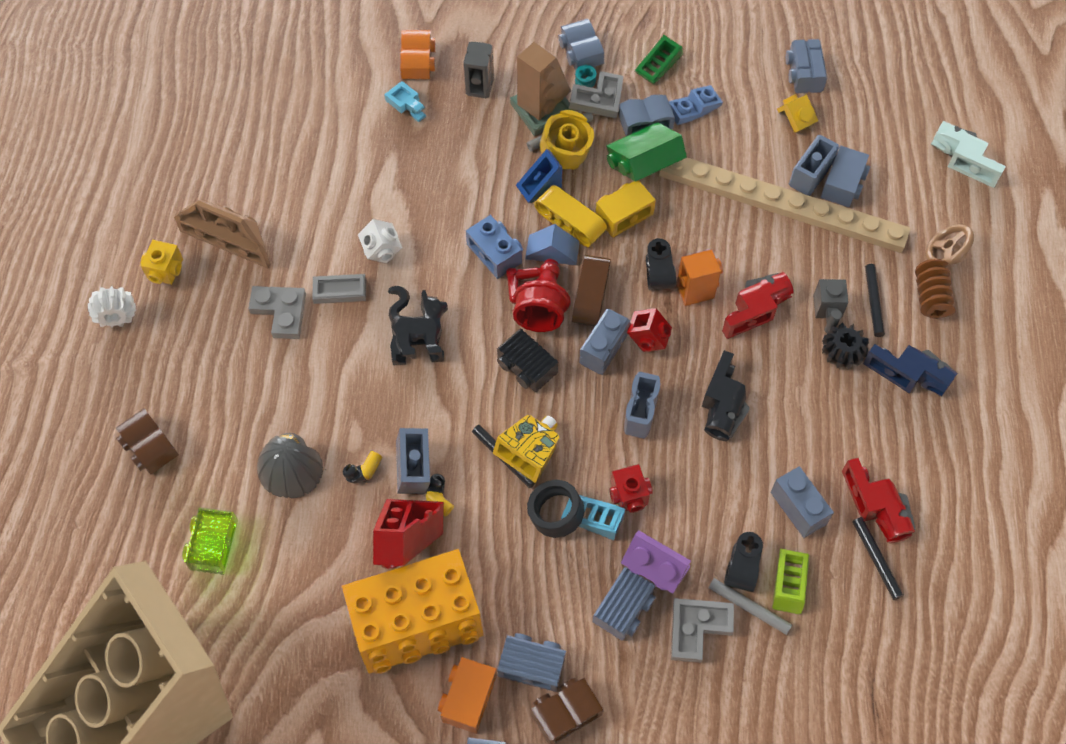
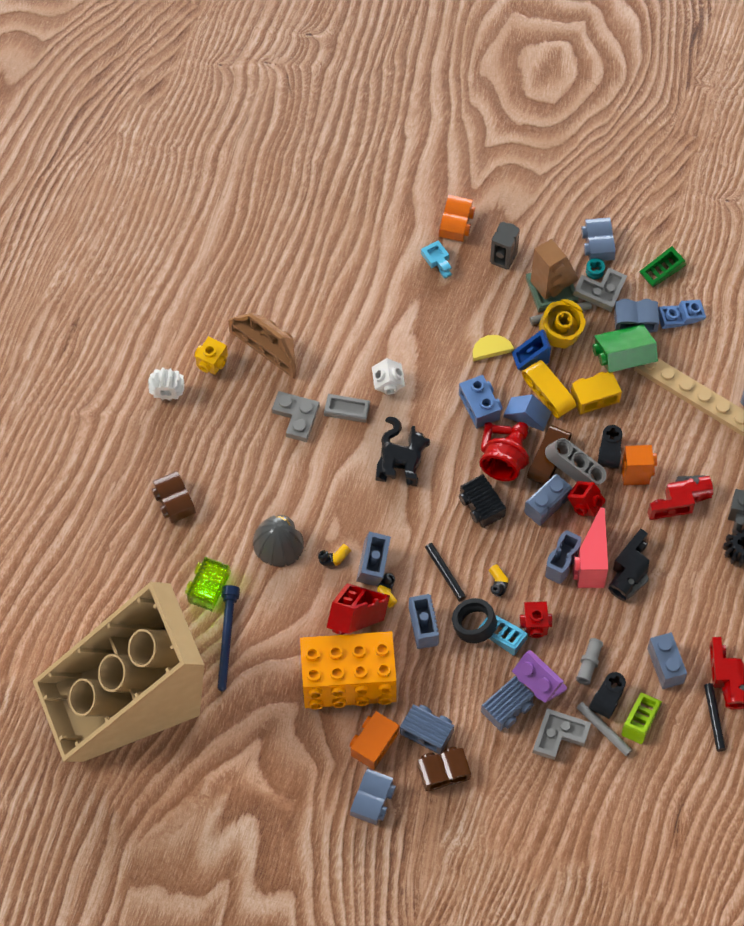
camera: 15 degrees right, 0 degrees up
(242, 549) = (230, 595): none -> dark blue piece
(491, 183) = (491, 346): none -> light yellow tile
(493, 524) = (423, 621): none -> sand blue brick
(528, 445) = (466, 567): yellow torso -> none
(573, 450) = (501, 581): none -> arm
(624, 290) = (571, 453): none -> light grey beam
(680, 402) = (591, 565): none -> coral slope
(708, 525) = (589, 661): none -> light grey pin

